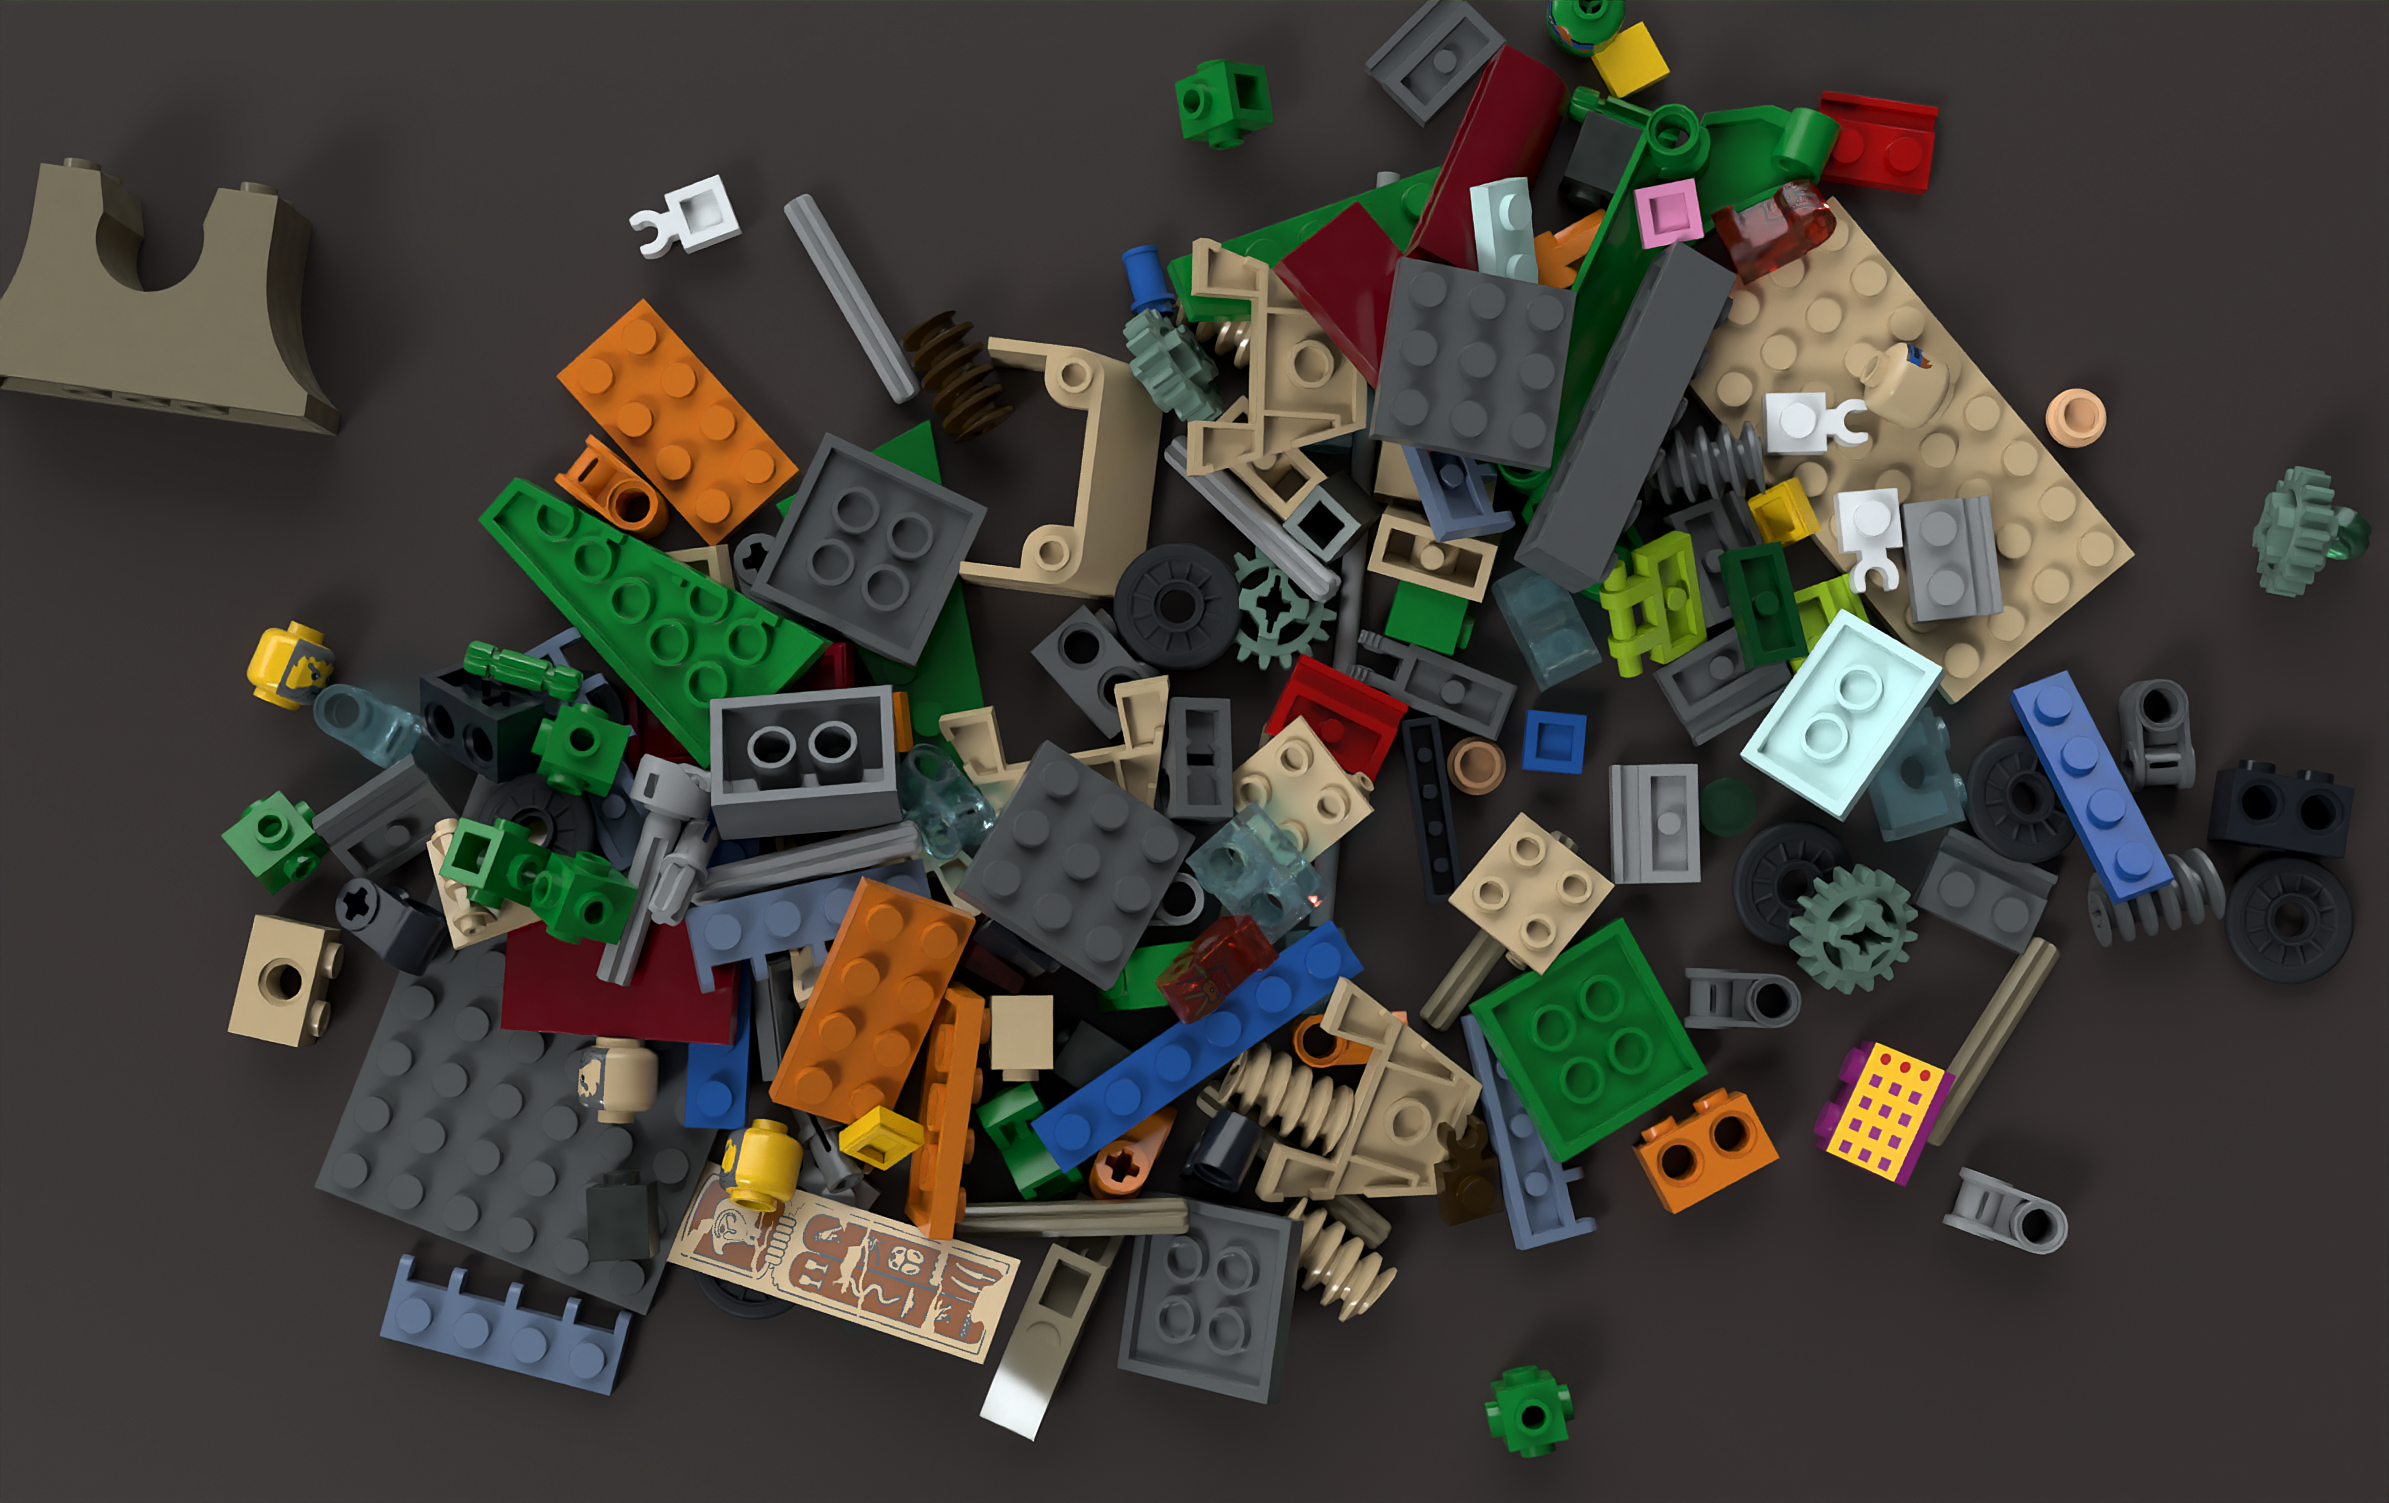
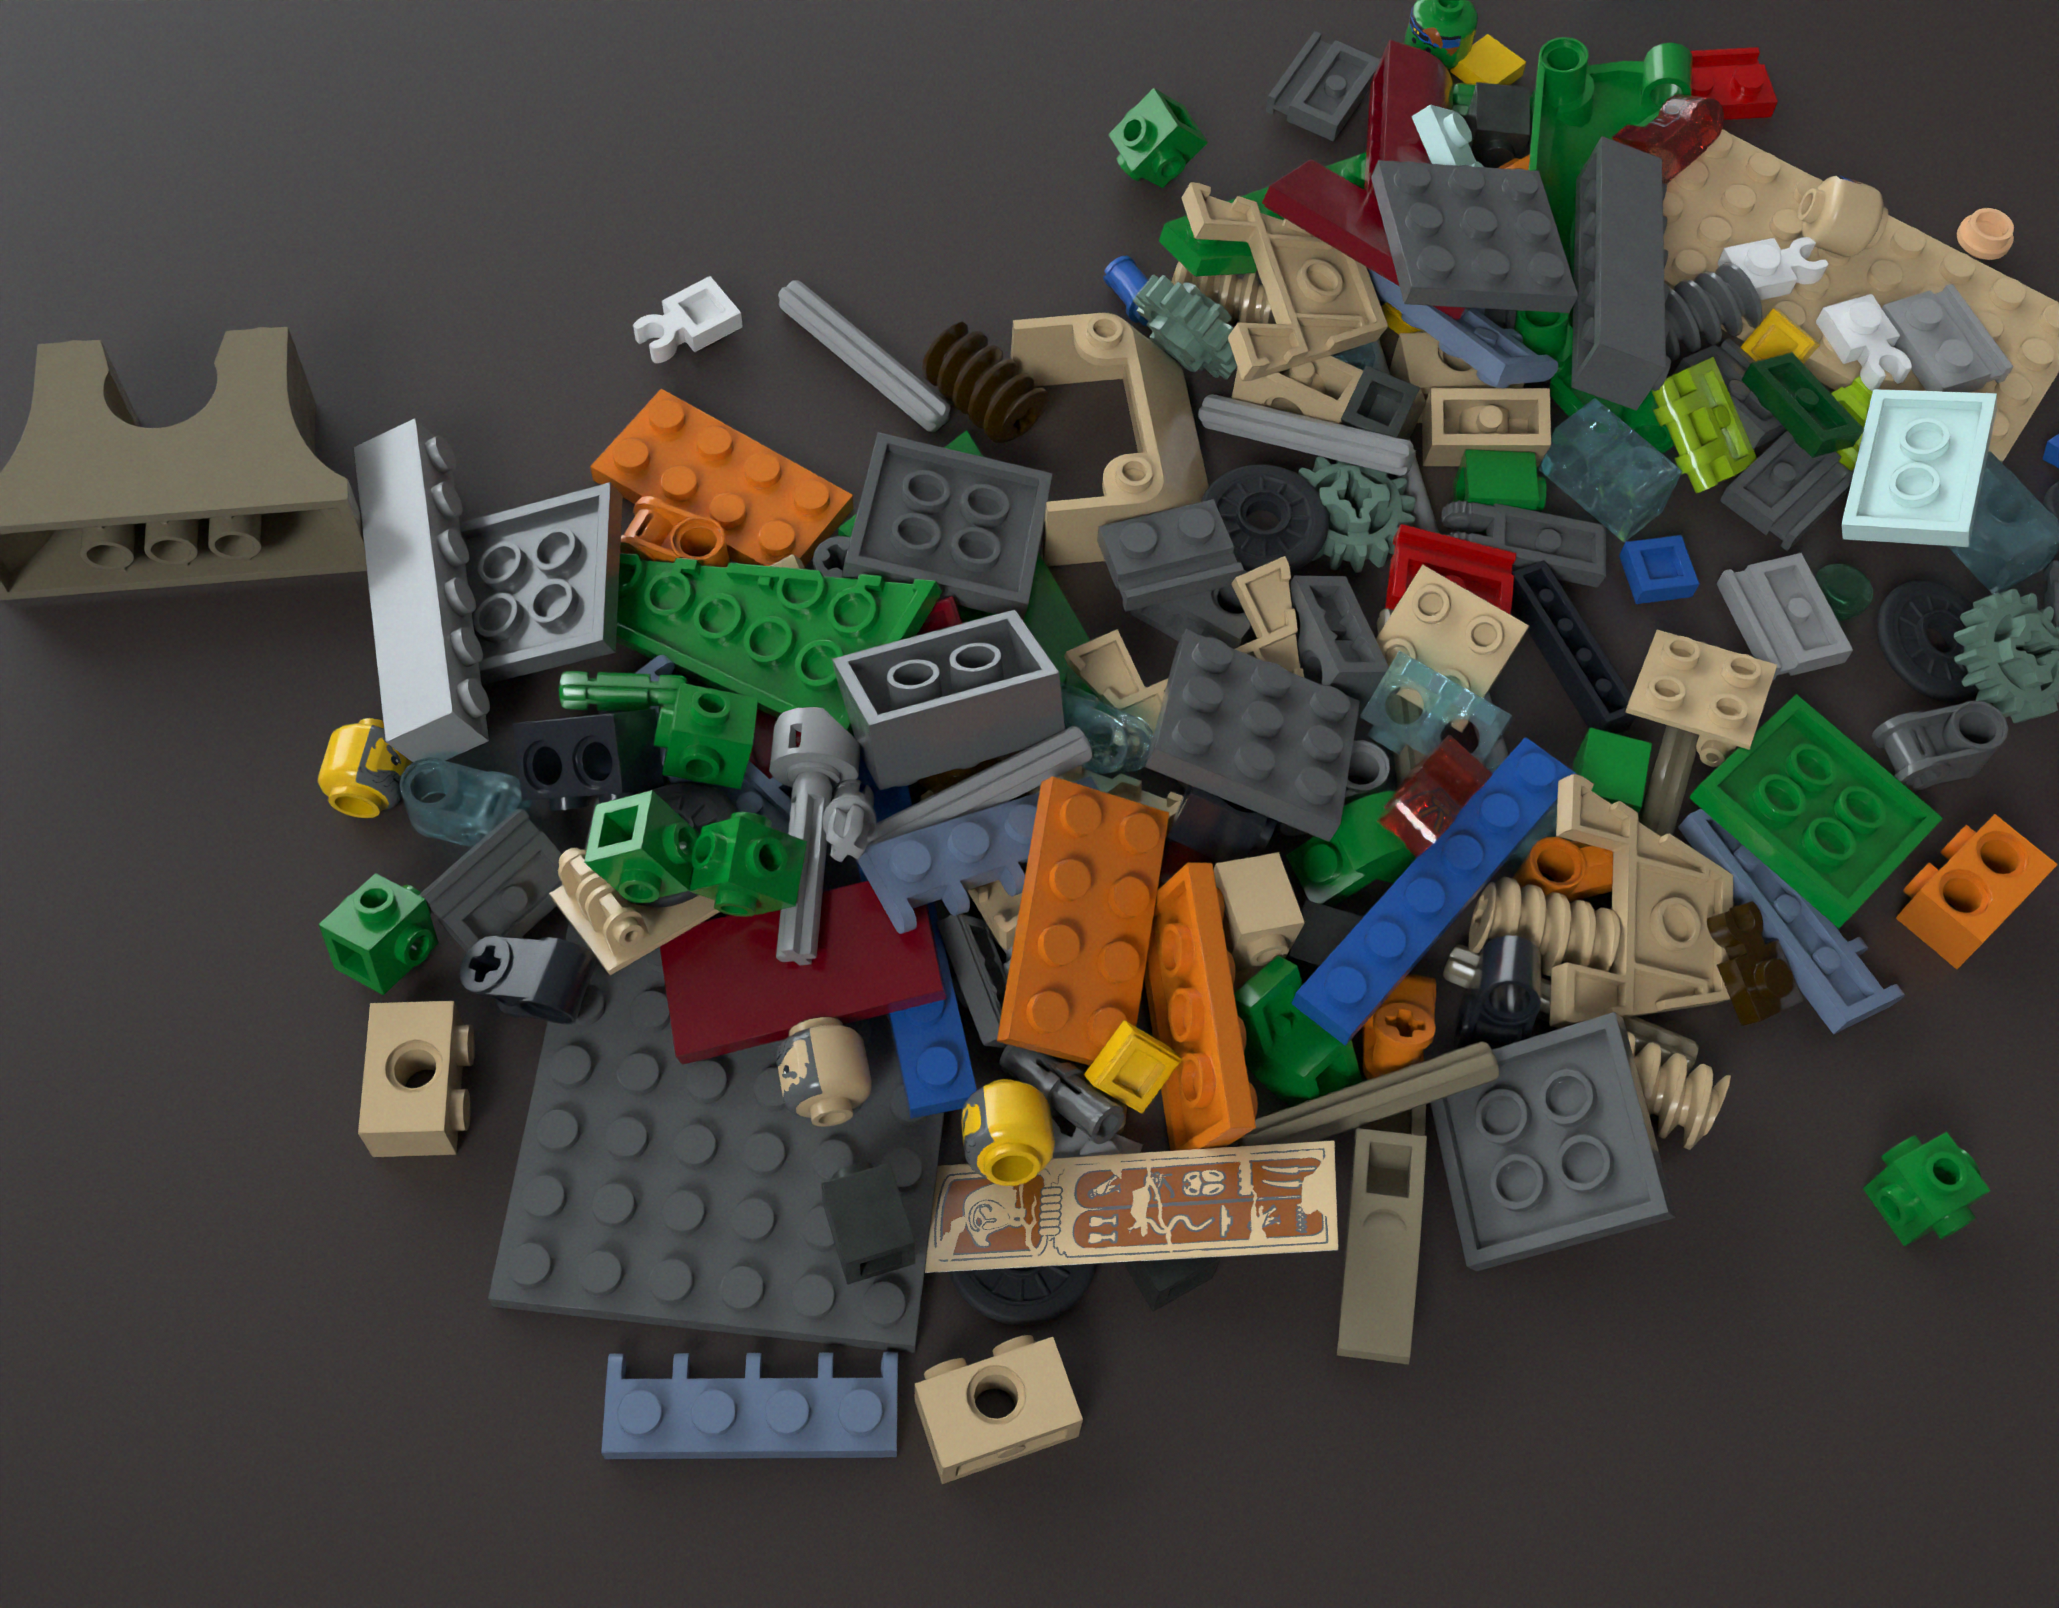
camera: 20 degrees left, 25 degrees down
(365, 497) = (420, 595): none -> light grey brick
(469, 518) = (545, 582): none -> dark grey plate
(663, 1402) = (970, 1442): none -> tan brick
(1068, 636) = (1169, 554): none -> dark grey plate
(1408, 961) = (1614, 766): none -> green brick
(1476, 765) = (1598, 604): medium nougat plate -> none
(1668, 213) = (1578, 128): bright pink plate -> none

